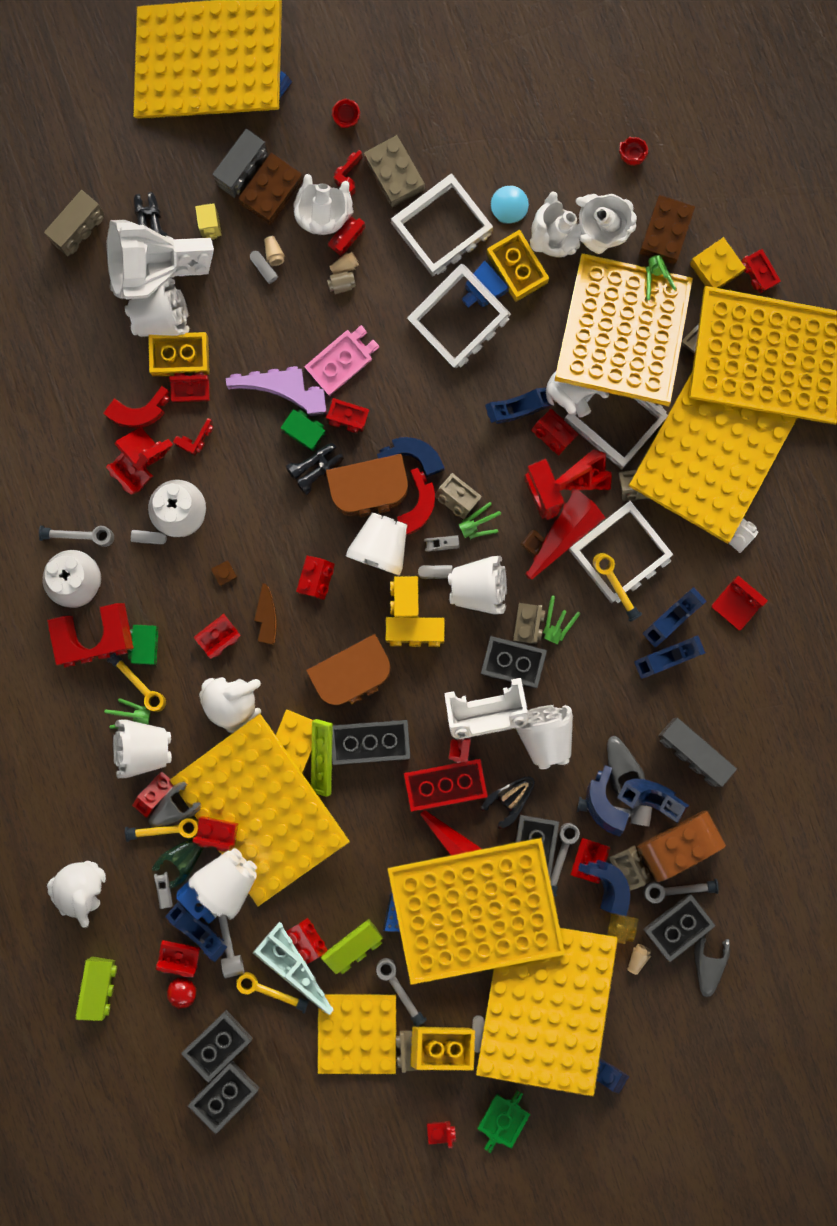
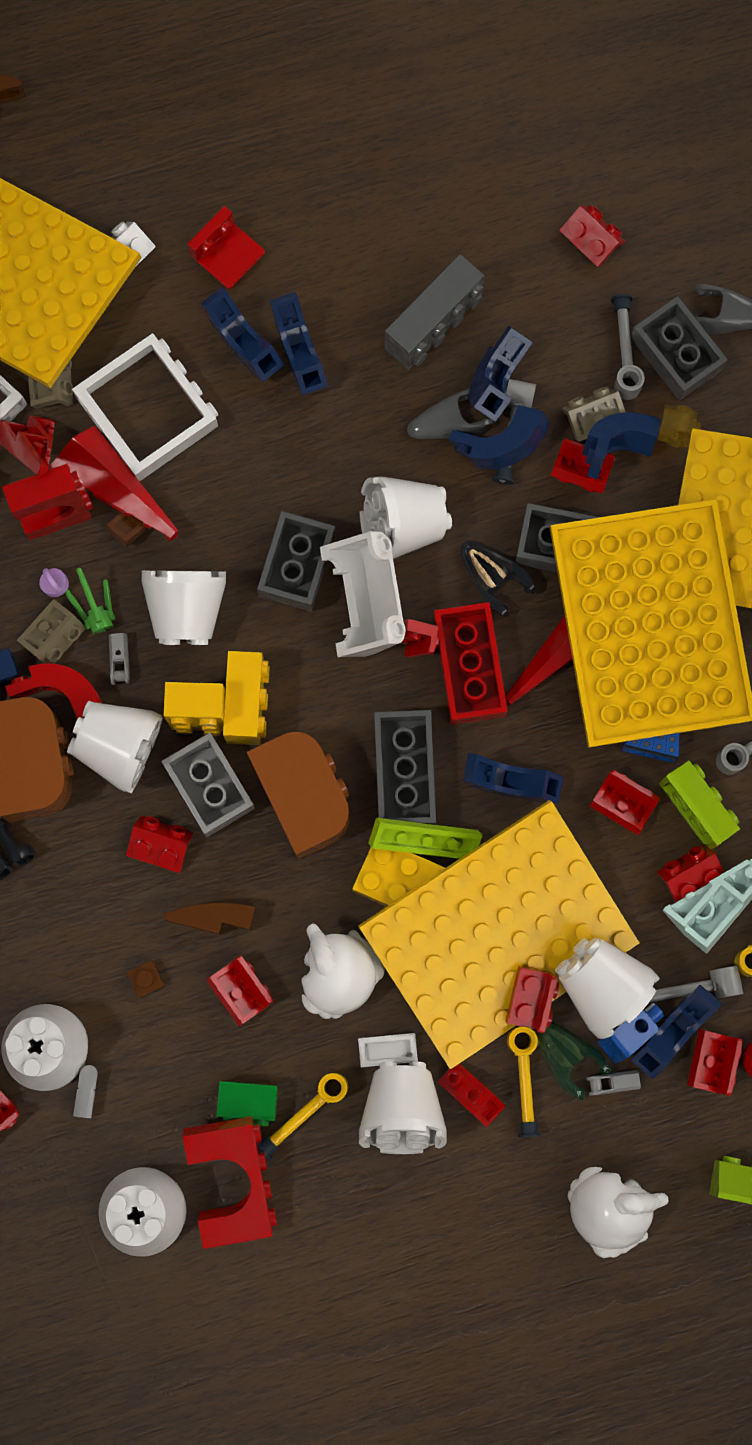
camera: 90 degrees left, 5 degrees down
(47, 533) = (71, 1247): light grey piece -> none
(140, 715) = (353, 1110): bright green plant -> none
(168, 813) = (497, 1072): dark grey animal -> none
(181, 737) = (389, 1048): none -> white tile
(353, 894) = (625, 801): none -> red bracket
(355, 608) = (208, 785): none -> light grey brick
(365, 816) = (512, 781): none -> dark blue arch
(436, 572) = (160, 668): light grey bar -> none
(493, 495) = (54, 582): none -> lavender tile
(528, 623) = (241, 539): dark tan bracket -> none
(554, 633) = (258, 502): bright green plant -> none
(562, 854) = (561, 501): light grey piece -> none
(632, 612) = (231, 393): yellow piece -> none
(638, 959) = (721, 407): tan cone -> none
(681, 846) = (566, 339): dark orange brick -> none
(763, 864) = (592, 234): none -> red bracket

